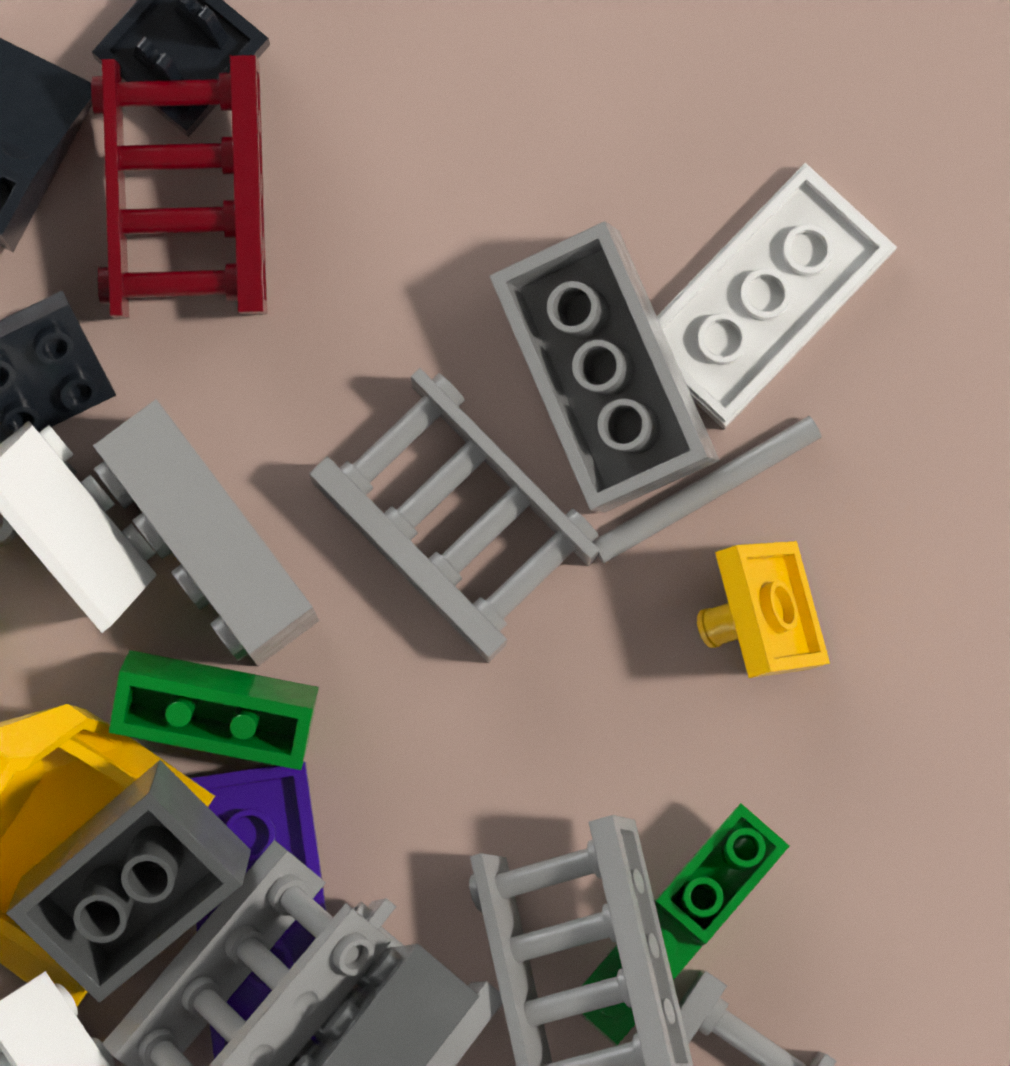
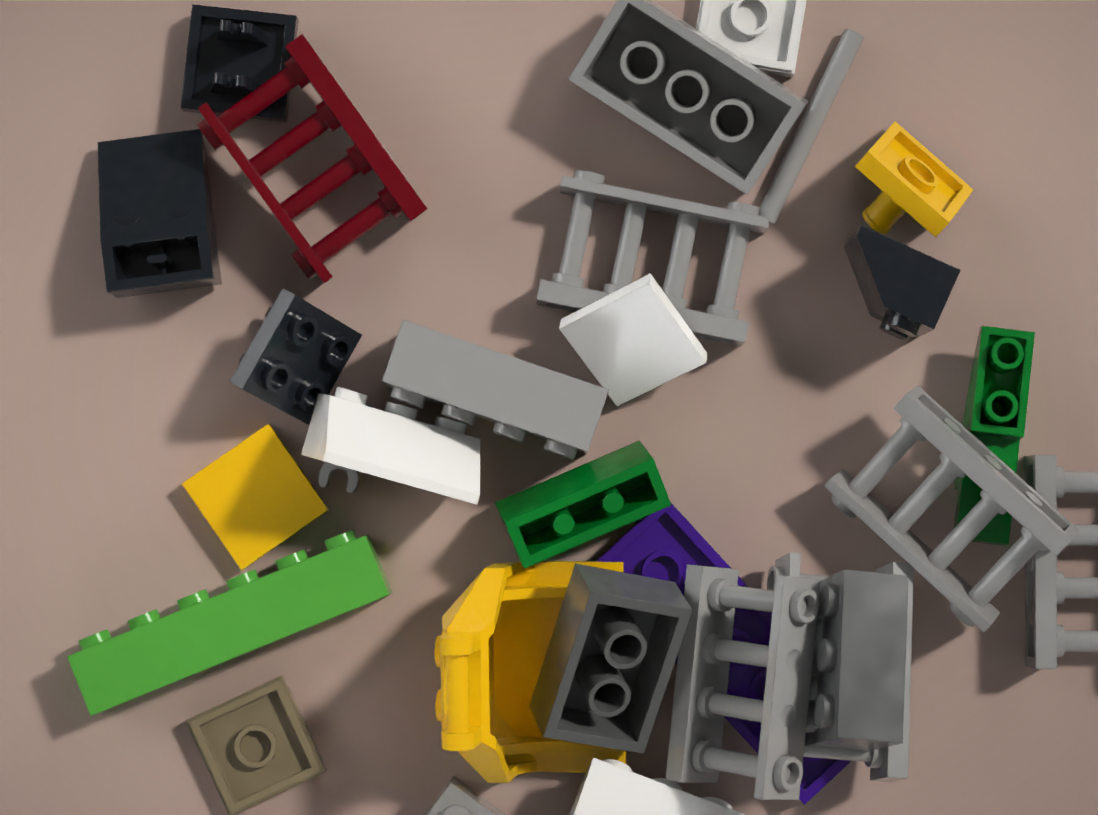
camera: 30 degrees left, 5 degrees up
(378, 579) = (633, 340): none -> white tile
(685, 703) = (899, 283): none -> black slope

